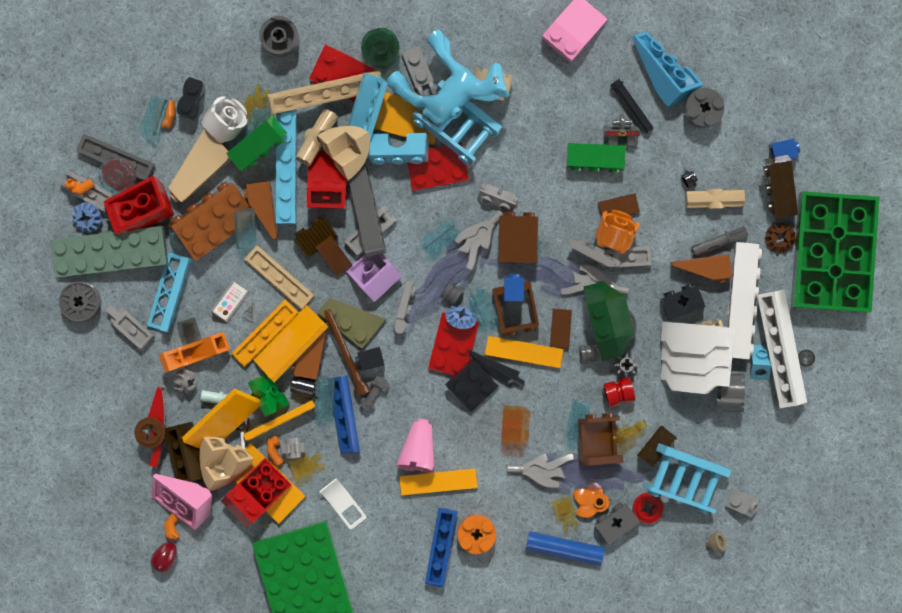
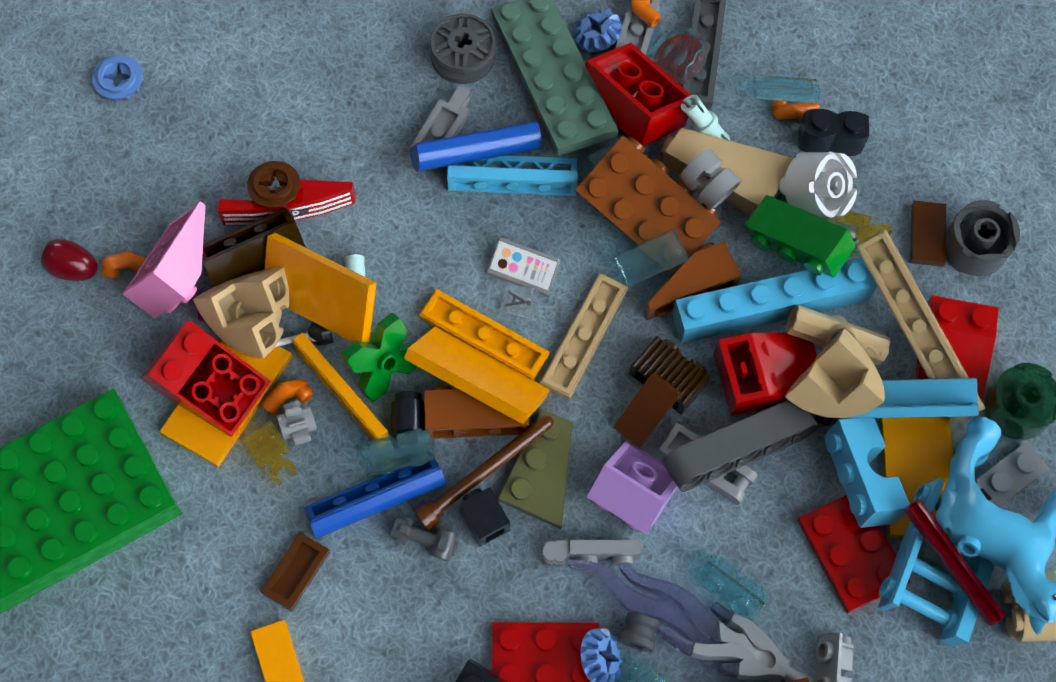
camera: 75 degrees right, 20 degrees down
(40, 515) = (109, 68): none -> medium blue gear
(149, 310) = (475, 146): none -> blue brick
(167, 173) = (703, 120): none -> light aqua pin
(184, 380) = (377, 217): light grey gear -> none
(188, 329) = (460, 216): clear smoke tile -> none
(194, 352) = (421, 227): orange arch -> none
(209, 183) = (718, 187): none -> light grey wheel
(265, 63) = (928, 233): none -> reddish brown tile
(341, 500) = (220, 528): white piece -> none
(374, 465) = (295, 571): none -> reddish brown tile
(418, 449) = (341, 639): bright pink cone -> none
(460, 121) = (954, 562): none -> dark red axle

